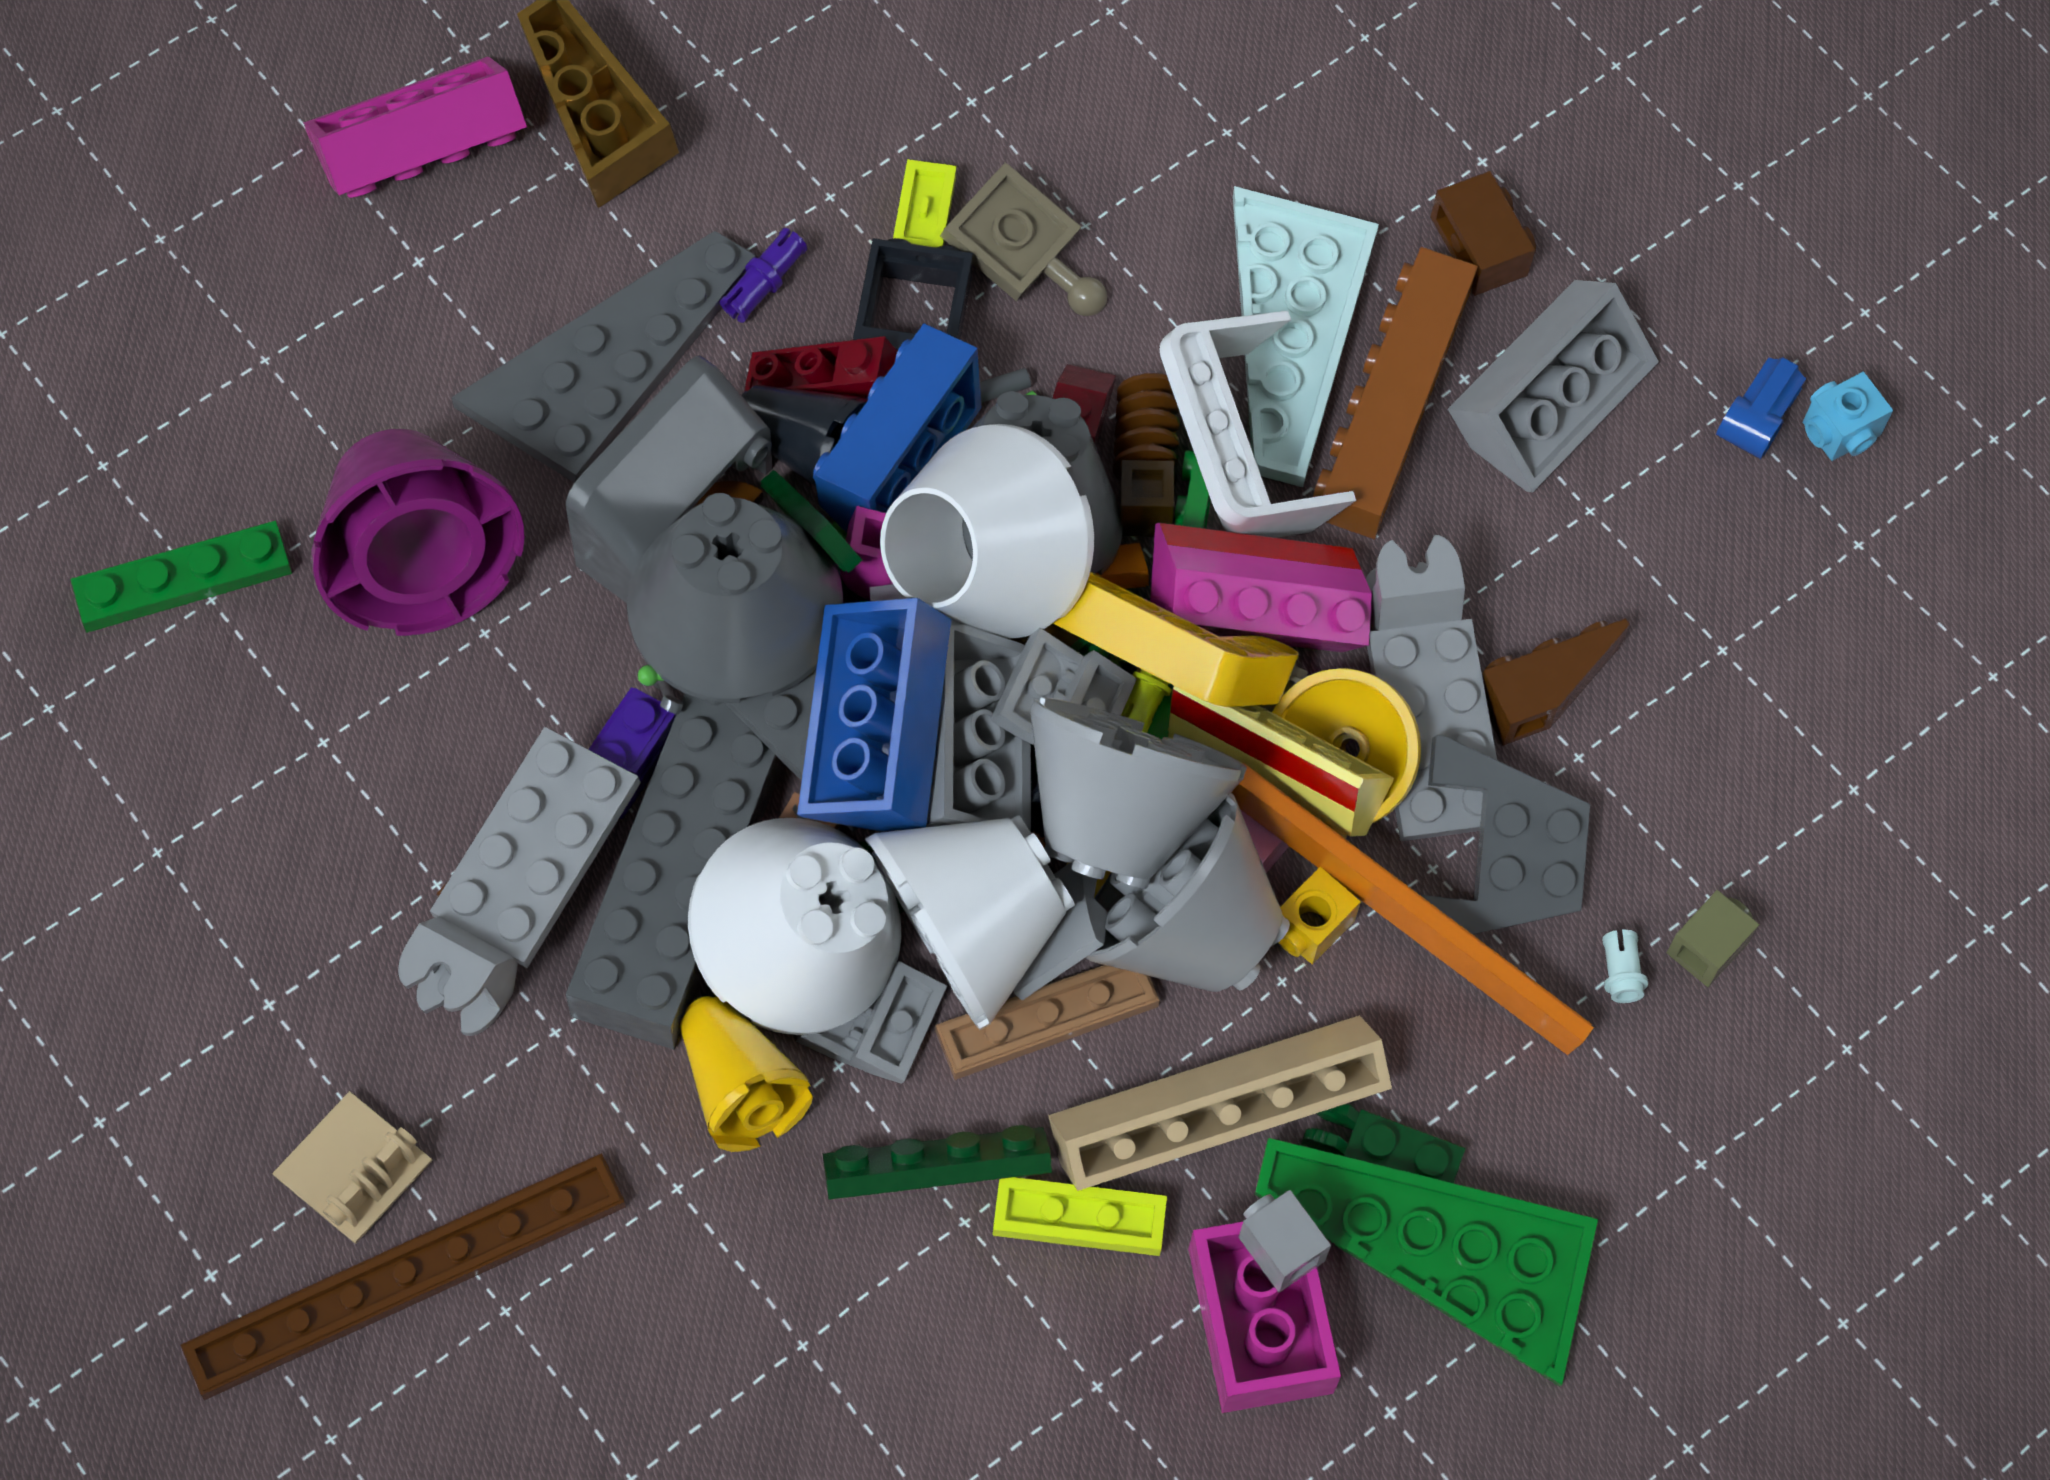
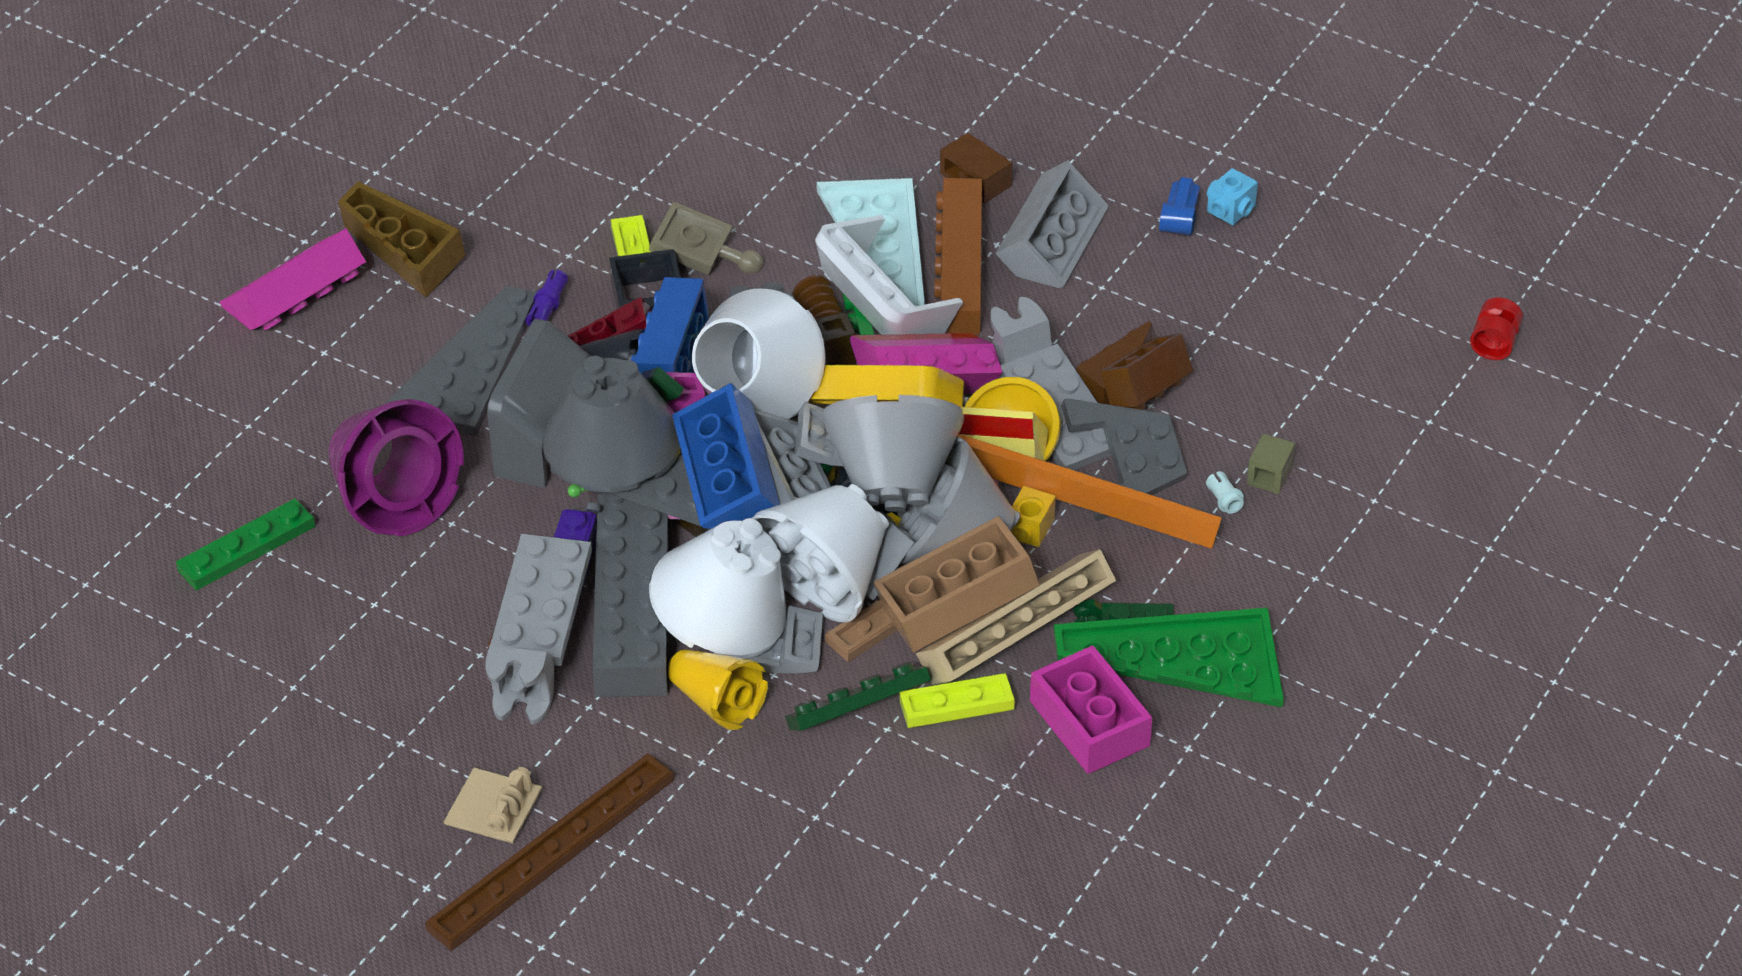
camera: 15 degrees left, 20 degrees down
(1141, 1033) = (956, 583): none -> medium nougat brick
(1283, 1239) = (1088, 654): light grey brick -> none
(1584, 716) = (1147, 371): none -> reddish brown brick

